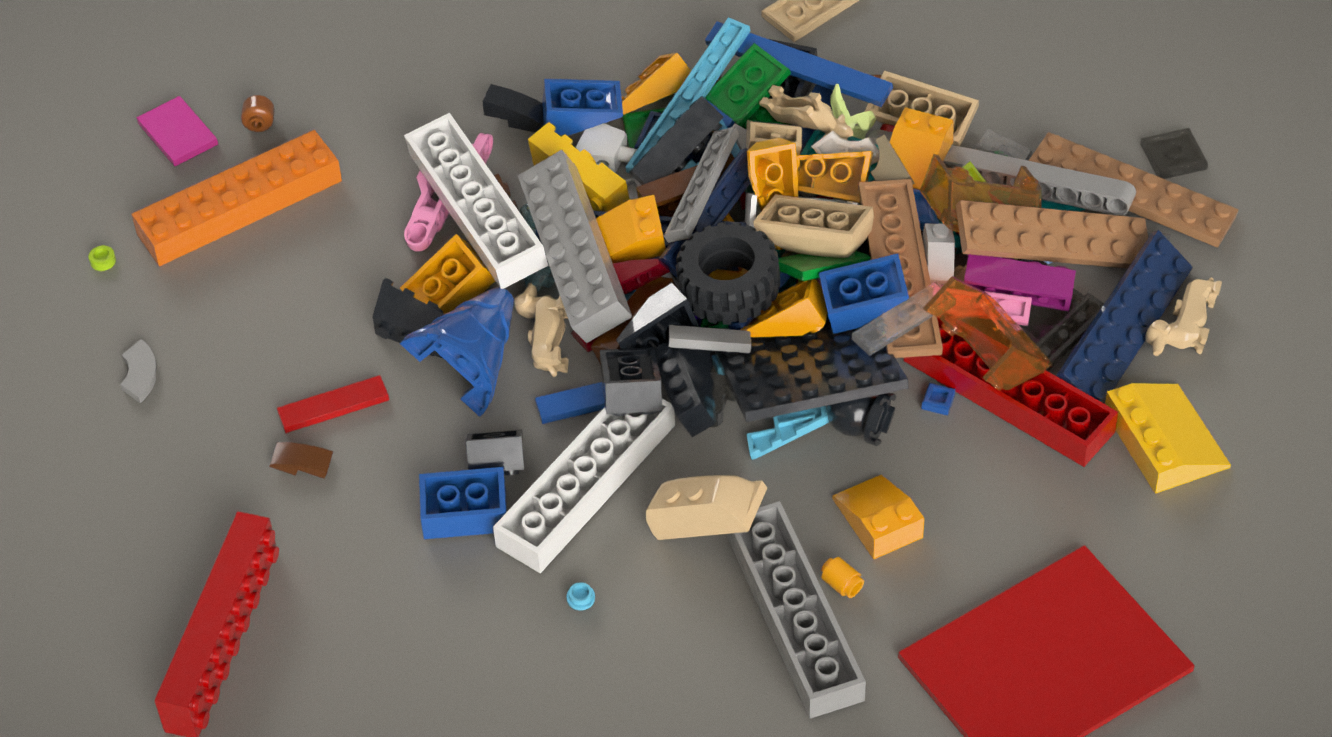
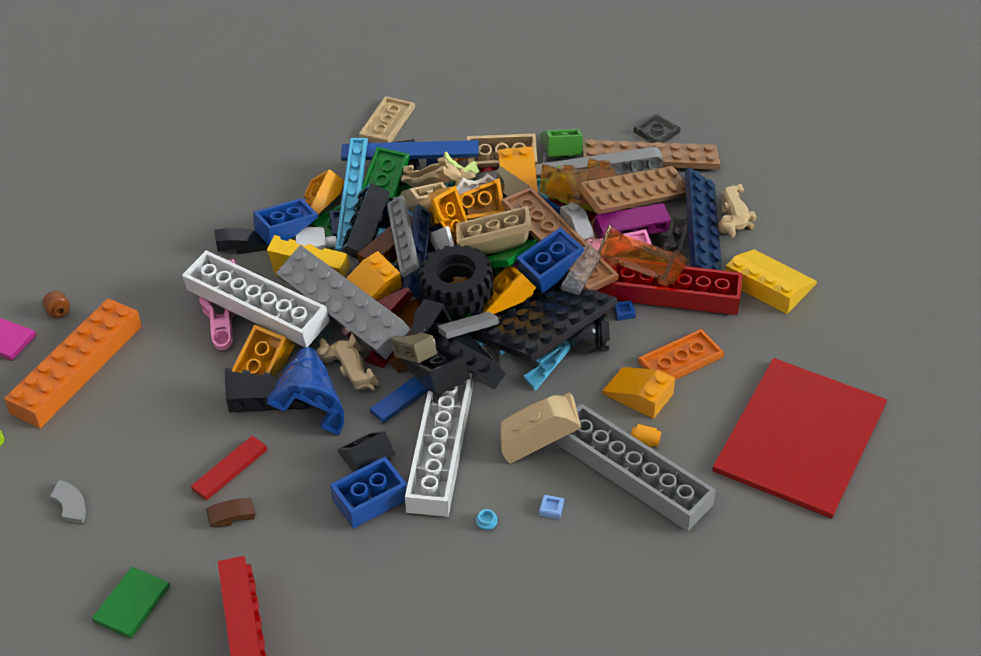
camera: 30 degrees left, 5 degrees down
(137, 517) = (131, 602): none -> green tile
(617, 343) = (414, 347): none -> dark tan arch
(668, 615) = (551, 507): none -> light blue tile
(967, 493) = (683, 355): none -> orange tile
(1016, 125) = (562, 142): none -> bright green slope

